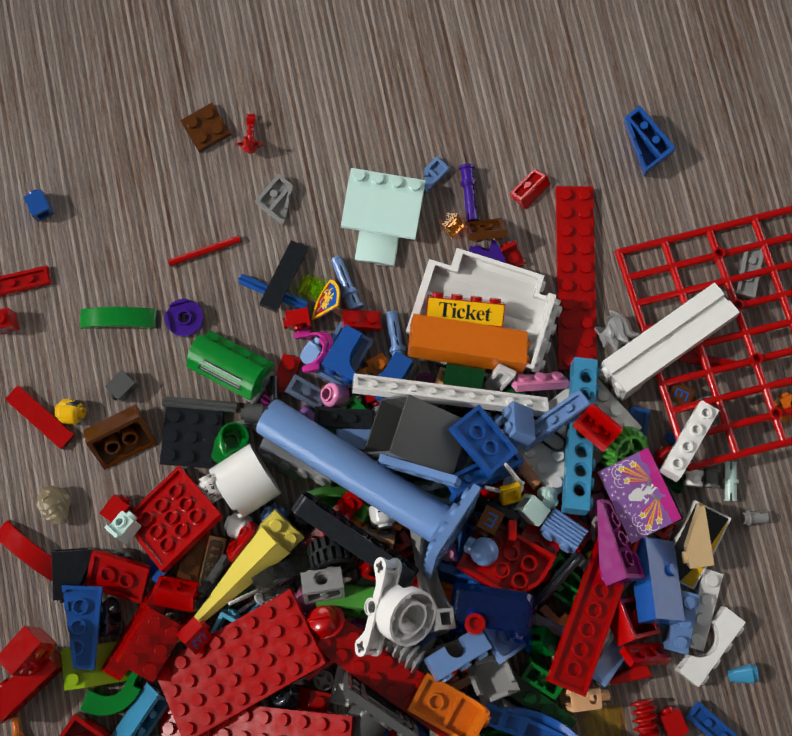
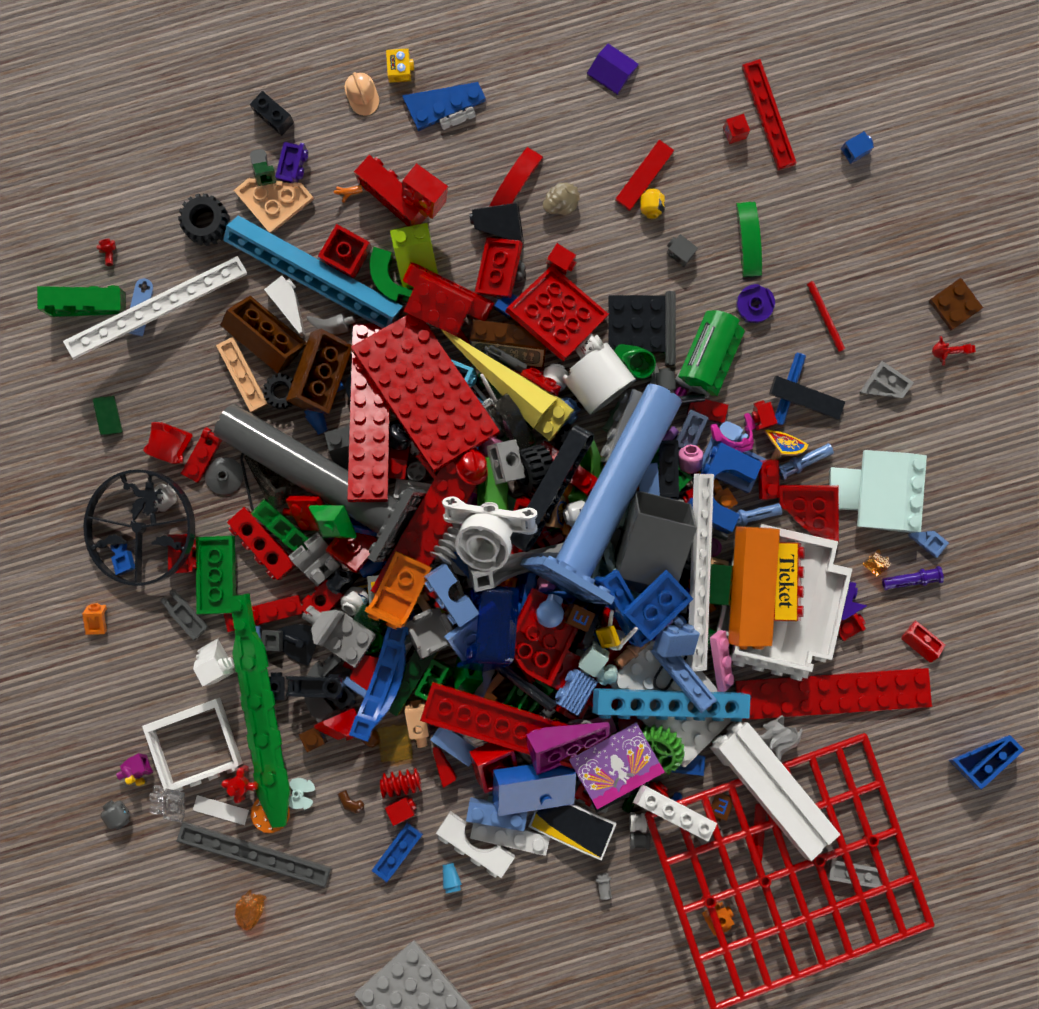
camera: 85 degrees right, 5 degrees up
(83, 622) = (456, 240): blue wing -> none
(110, 618) = (460, 263): black piece -> none
(119, 437) = (631, 253): reddish brown slope -> none
(124, 526) = (545, 268): light aqua brick -> none
(175, 593) = (487, 323): red hinge -> none
(195, 635) = (450, 346): red brick -> none
(310, 287) = (798, 426): clear neon green slope -> none
(394, 279) = (813, 508): none -> red plate
(419, 471) = (622, 545): medium blue tile -> none
(475, 624) = (480, 609): red tile -> none
(485, 229) = (874, 597): reddish brown plate -> none
(499, 378) = (721, 620): white tile -> none
(511, 532) = (570, 639): red tile -> none
(598, 427) = (680, 719): red bracket -> none
(644, 654) = (463, 779): red plate -> none
(698, 544) = (572, 827): tan slope -> none
(730, 481) = (638, 860): light aqua pin -> none

